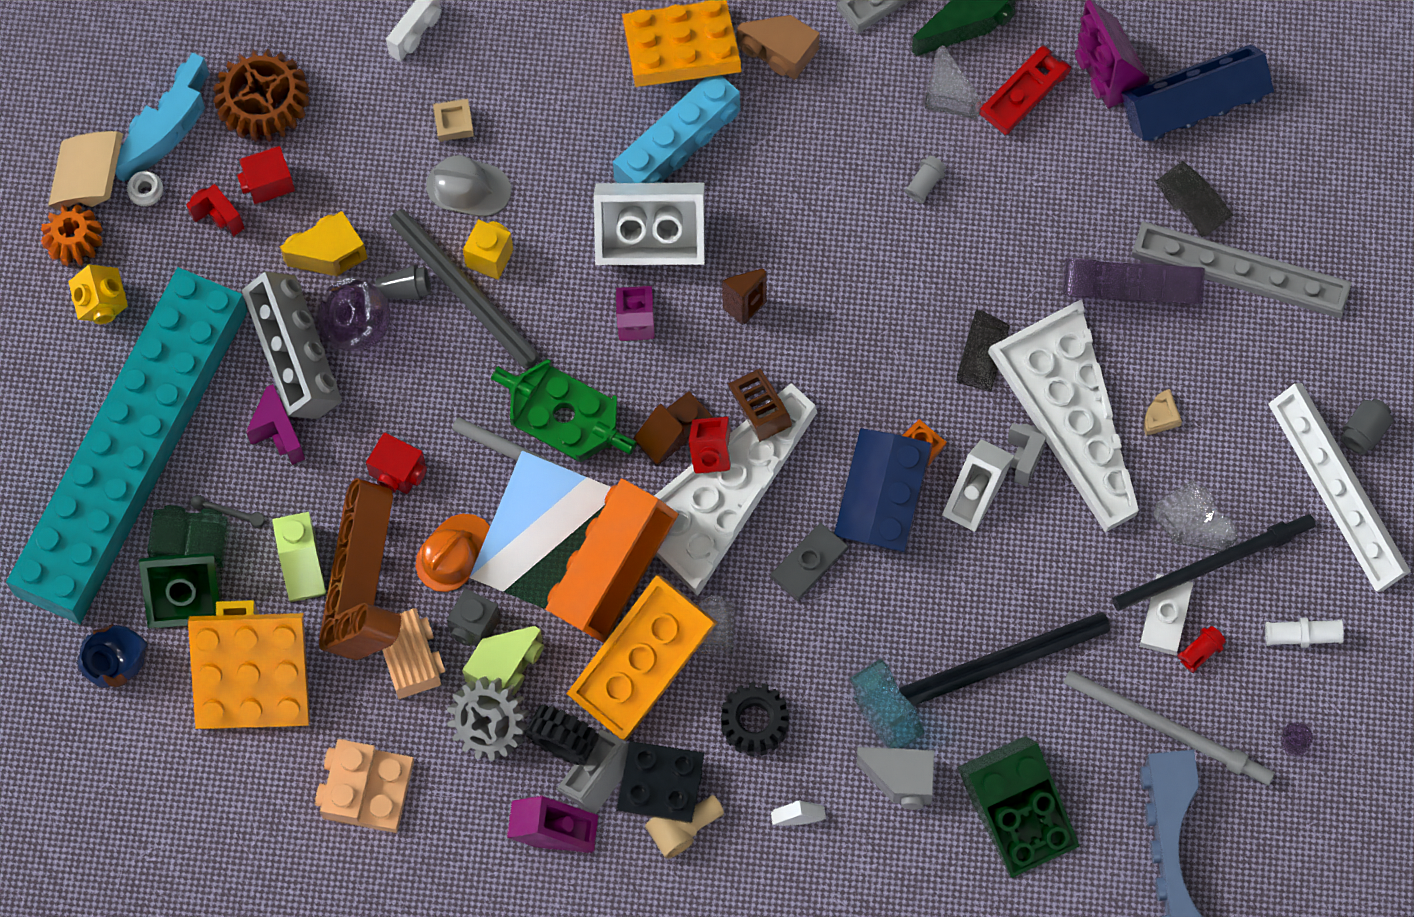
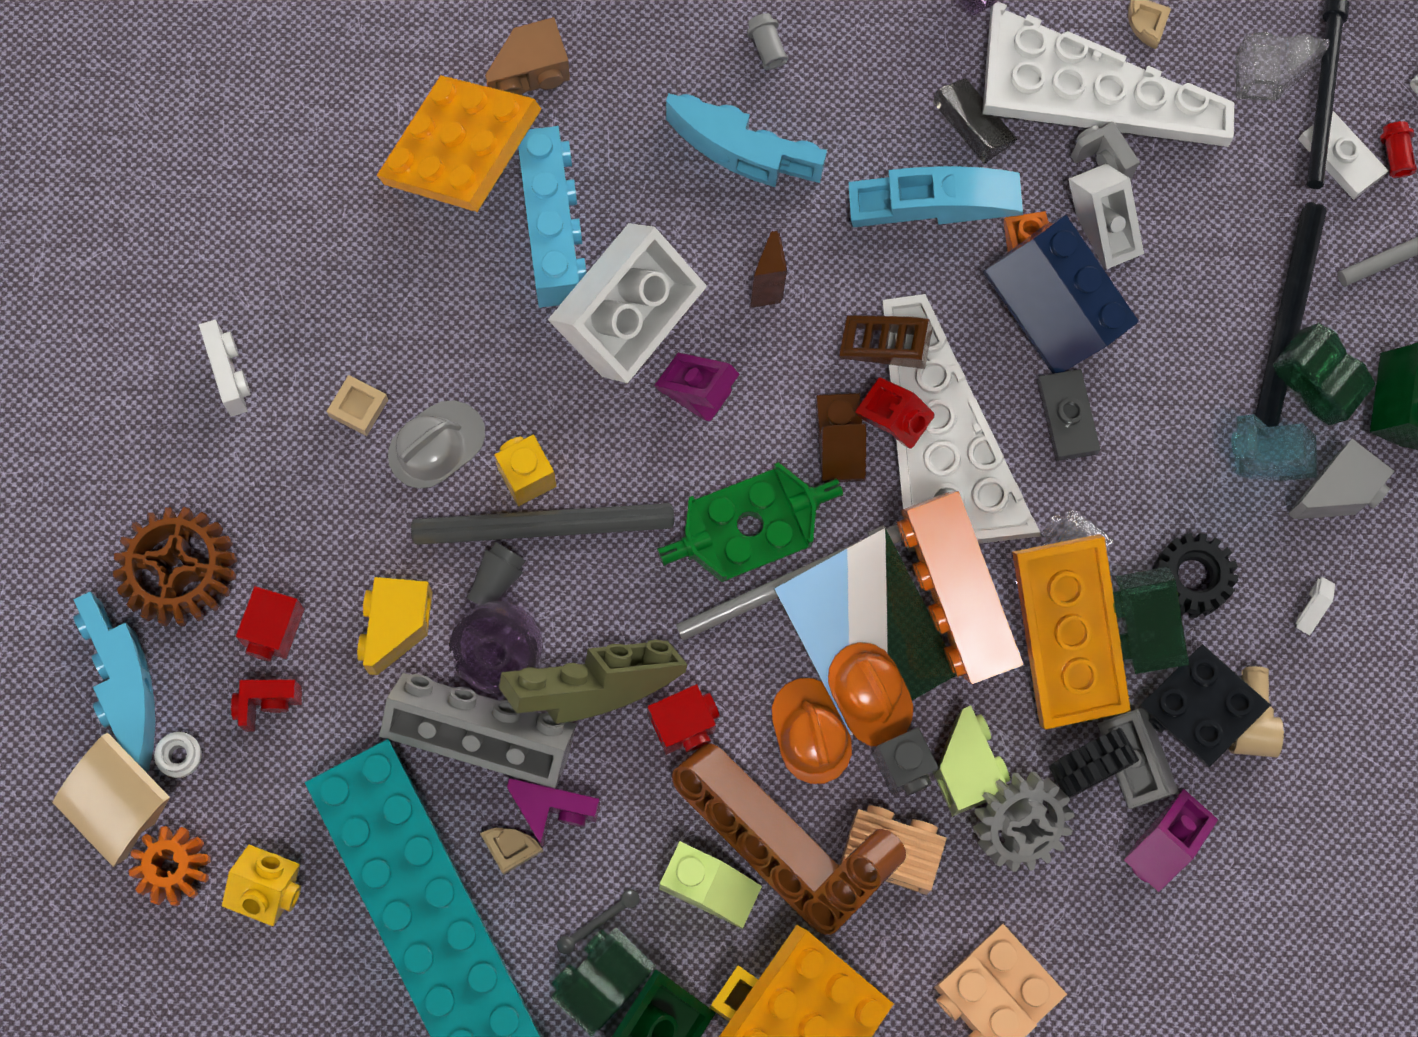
camera: 60 degrees left, 5 degrees up
(233, 423) = (510, 847): none -> tan tile
(383, 398) = (606, 681): none -> olive slope
(505, 566) = (870, 693): none -> orange piece
(691, 704) = (1150, 620): none -> clear green brick
(831, 213) = (725, 139): none -> medium azure slope
(898, 364) = (936, 192): none -> medium azure slope
(973, 704) = (1324, 374): none -> clear green brick

